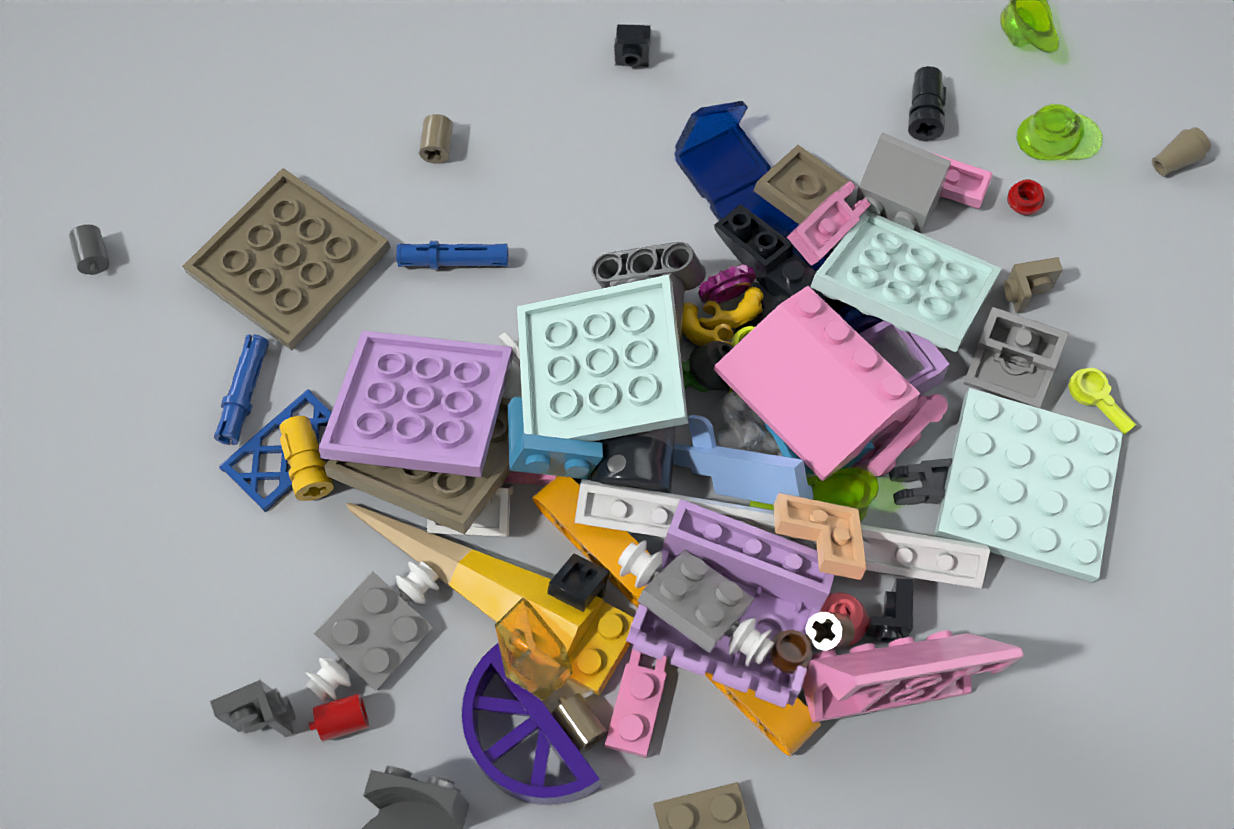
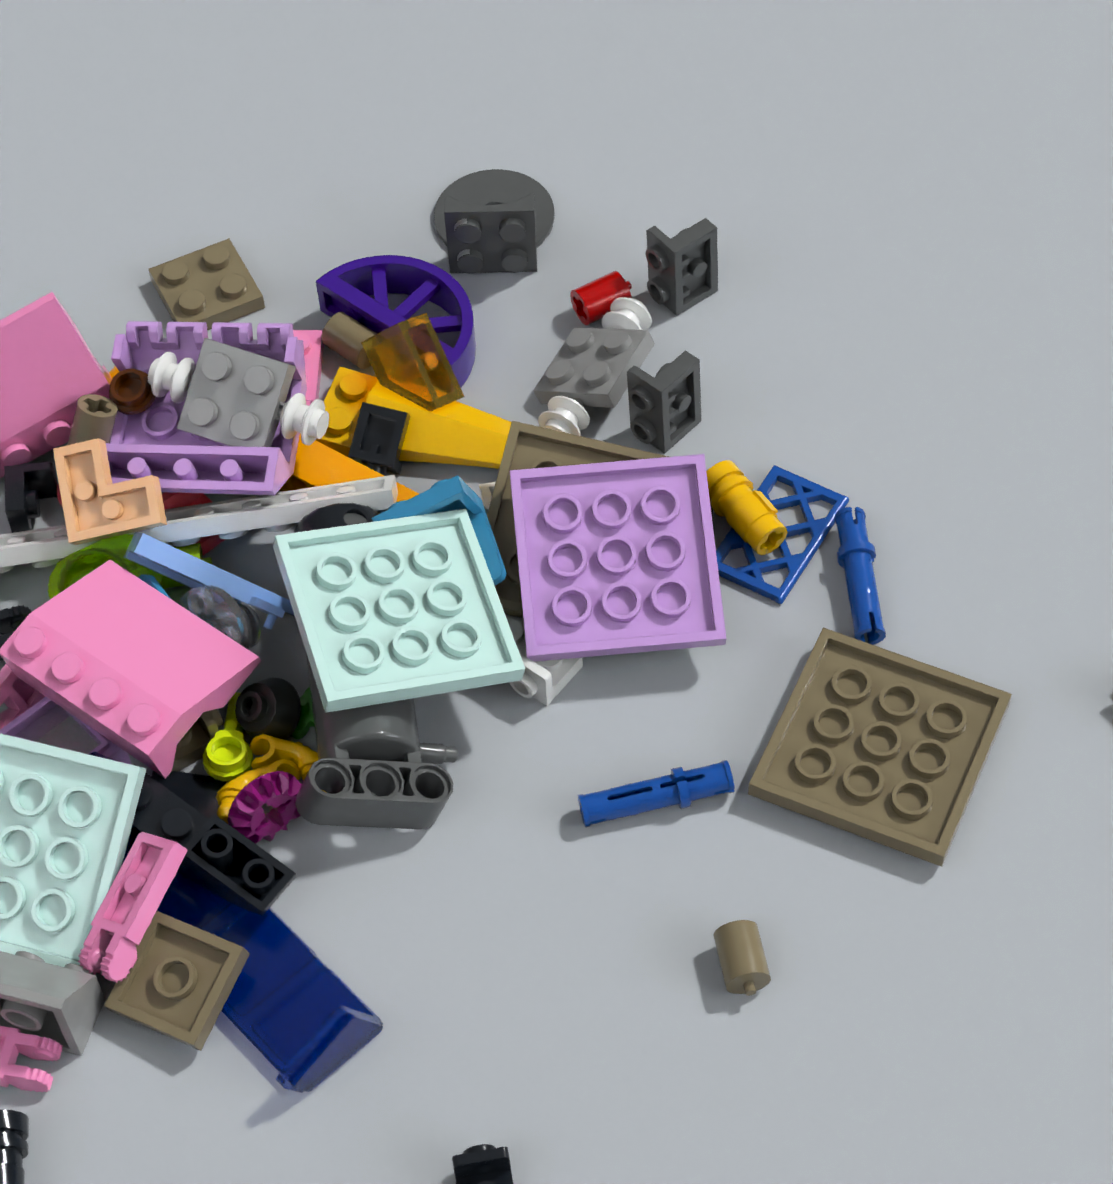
camera: 165 degrees right, 10 degrees down
(323, 556) = (665, 405): none -> dark grey bracket

